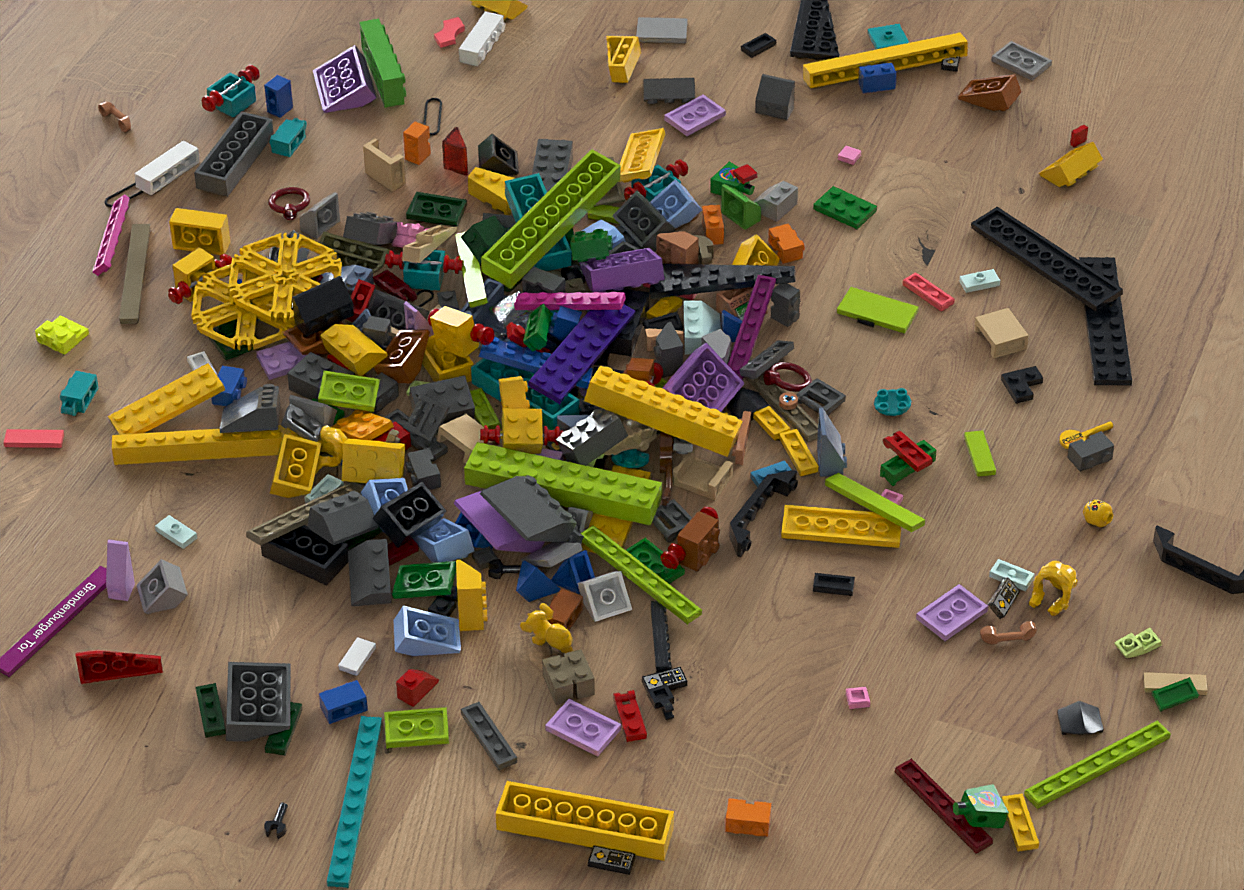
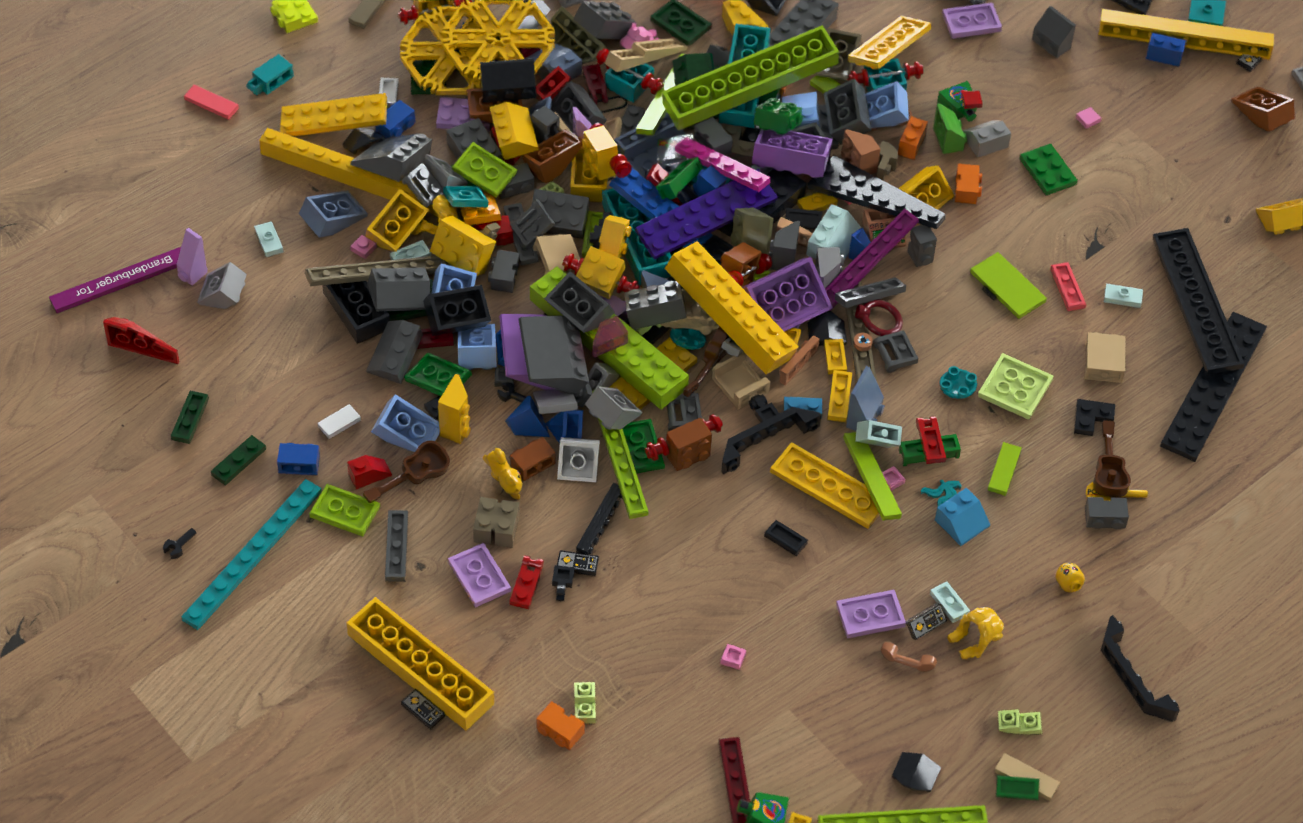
camera: 25 degrees right, 10 degrees up
(205, 414) = (359, 138): none -> black slope
(222, 486) = (331, 212): none -> sand blue slope
(257, 700) = (227, 425): dark grey slope -> none
(272, 503) = (363, 247): none -> bright pink plate
(348, 418) = (465, 196): none -> teal plate
(466, 656) = (427, 462): none -> reddish brown piece
(490, 398) = (594, 237): none -> black slope
(527, 457) = (579, 303): none -> dark grey slope
(572, 475) = (609, 336): none -> clear pink slope
(610, 537) = (612, 407): none -> light grey slope
(631, 343) = (752, 228): none -> olive slope
(740, 491) = (762, 409): none -> black plate
(753, 788) = (585, 702): none -> yellowish green slope
(858, 465) = (878, 434): none -> light aqua brick
(942, 385) = (1015, 386): none -> yellowish green plate
(942, 487) = (948, 487): none -> teal piece
(973, 504) = (962, 517): none -> dark azure slope
(1074, 420) = (1111, 476): none -> reddish brown piece

